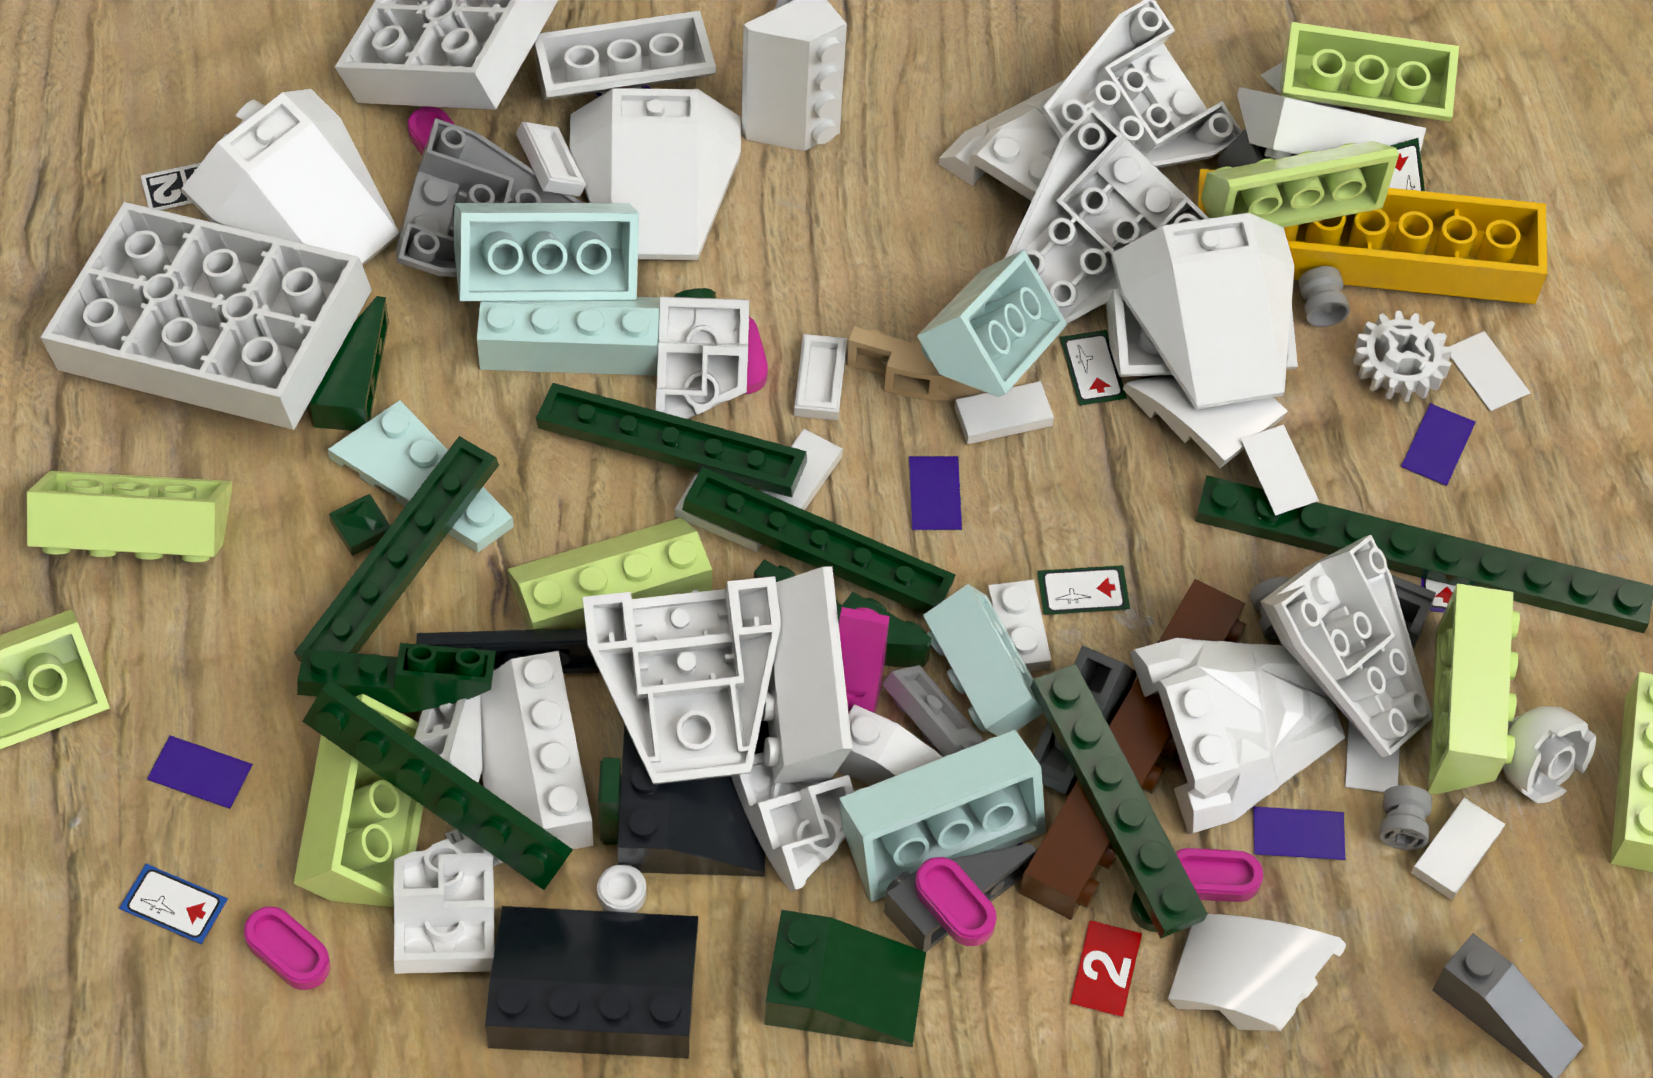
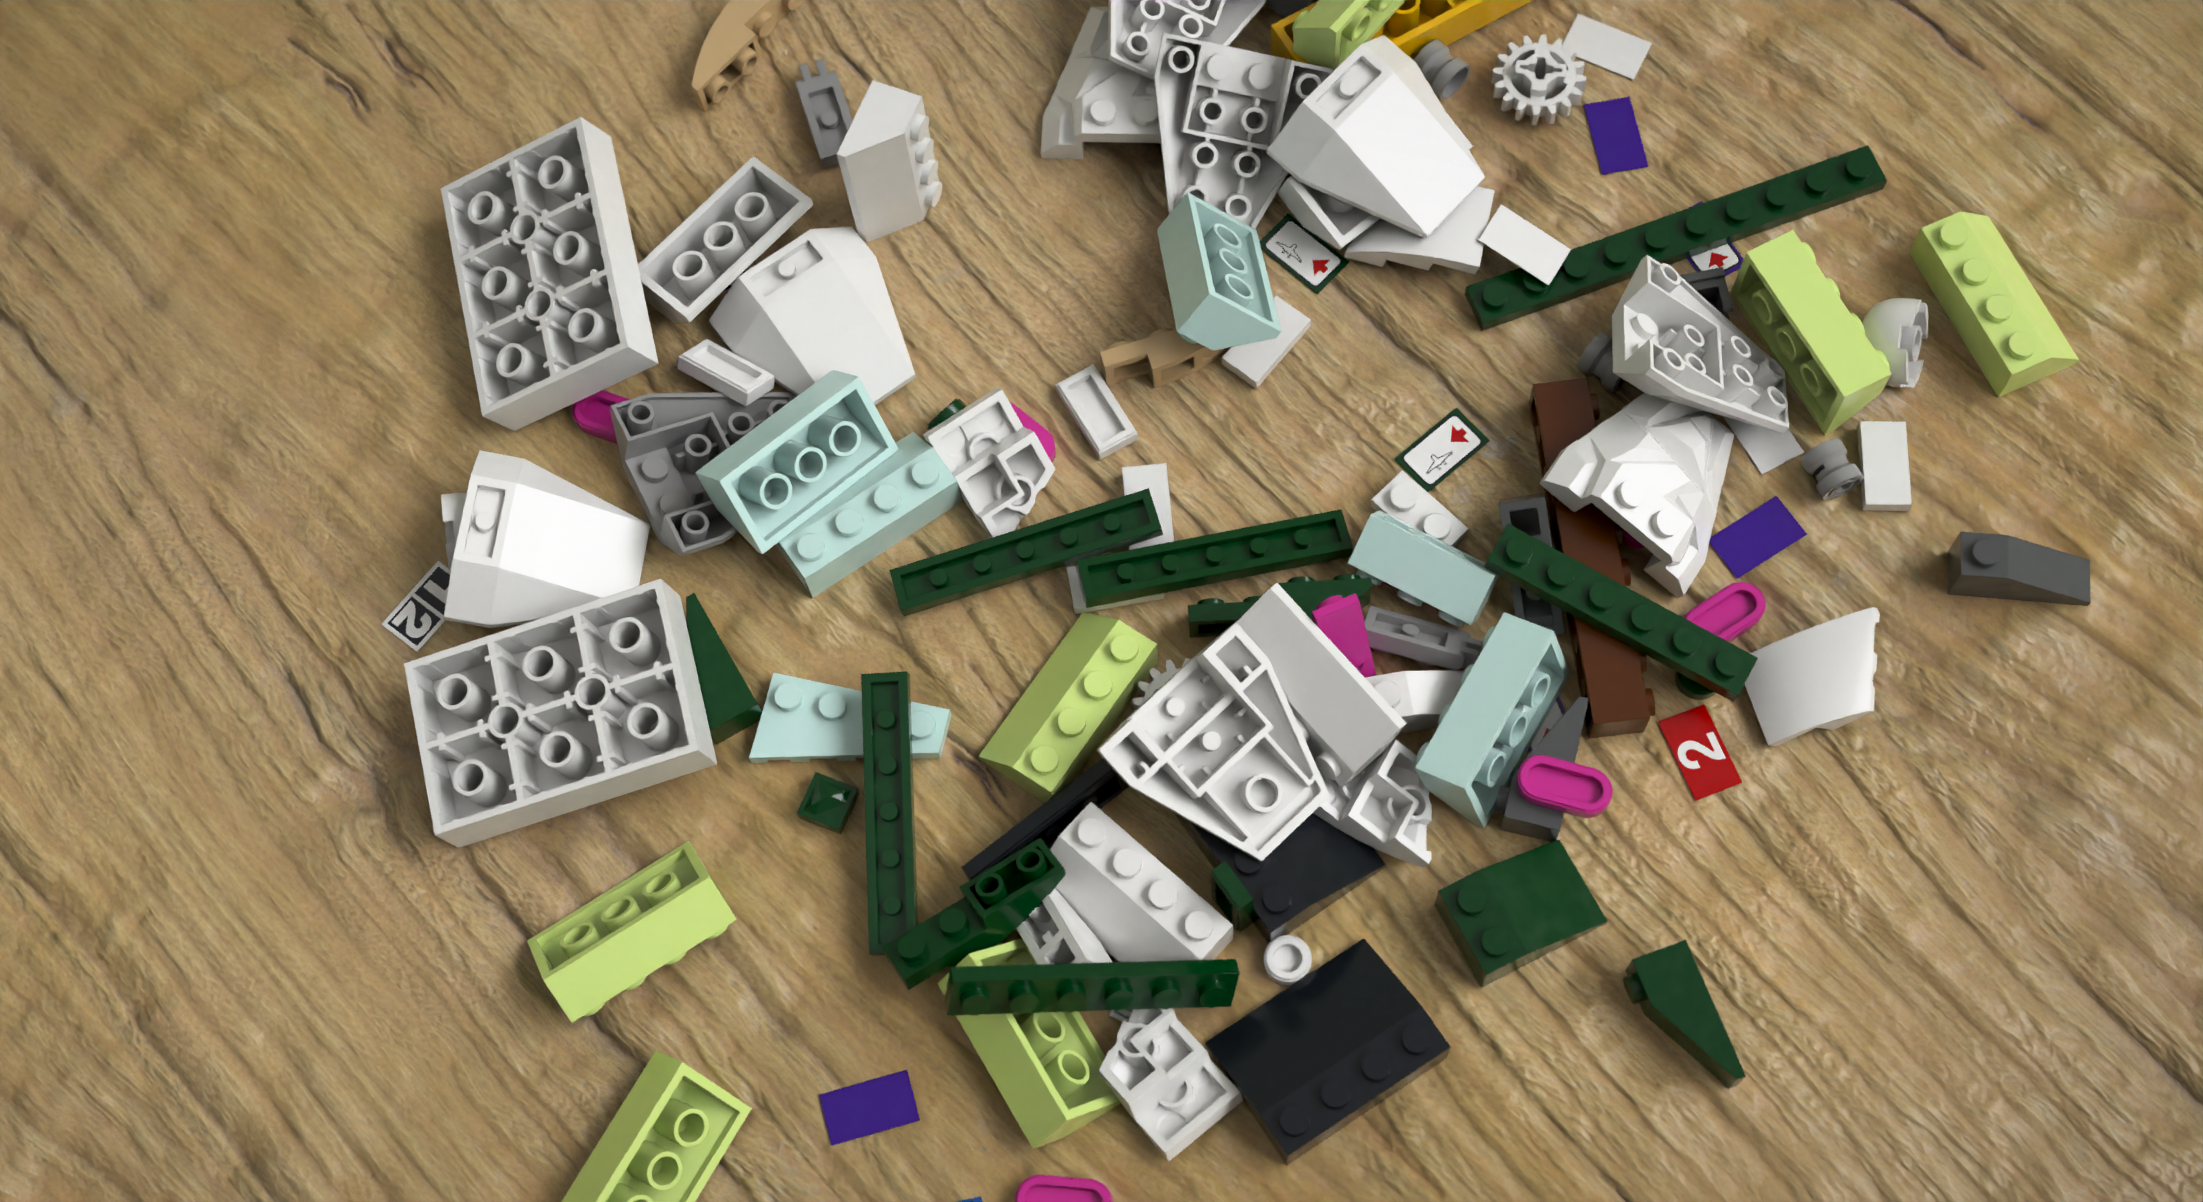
camera: 25 degrees left, 10 degrees up
(935, 493) = (1263, 448): dark purple sticker -> none

